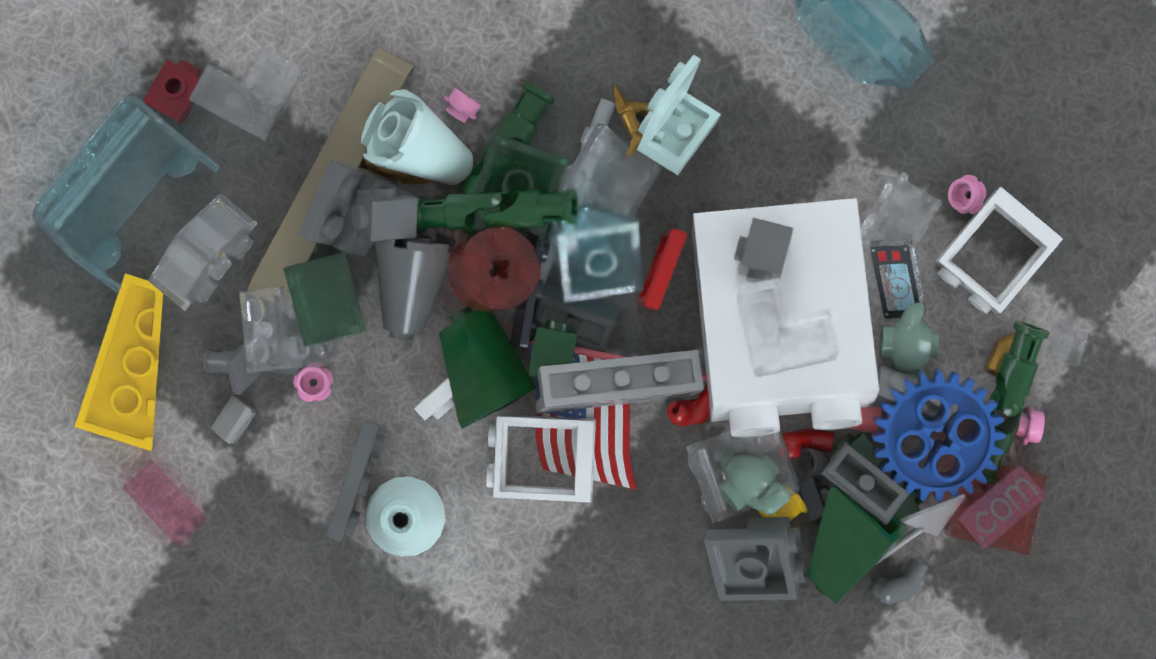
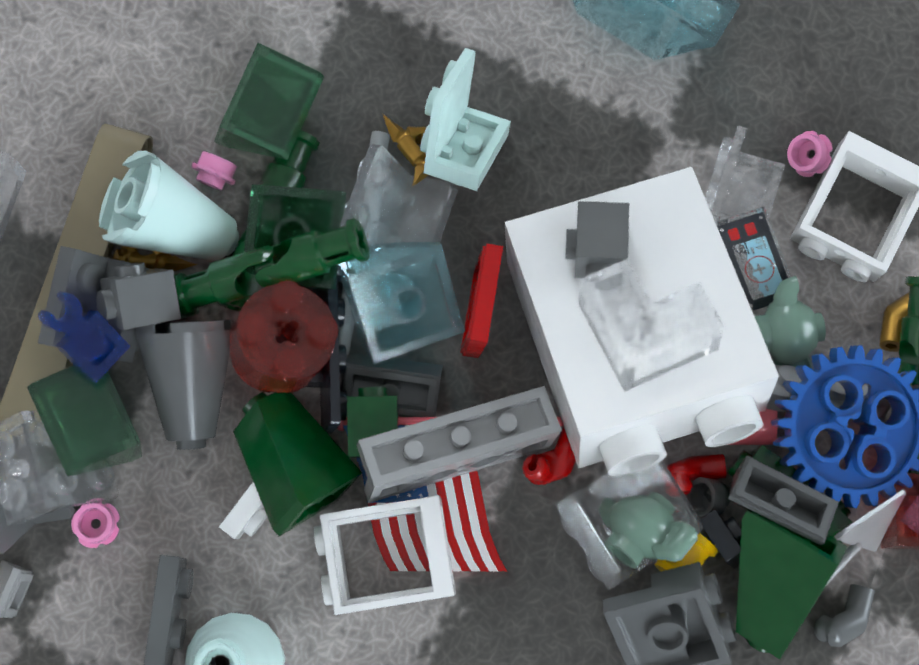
camera: 10 degrees left, 10 degrees down
(341, 241) = (88, 340): none -> clear blue plate
(518, 61) = (269, 104): none -> clear green slope

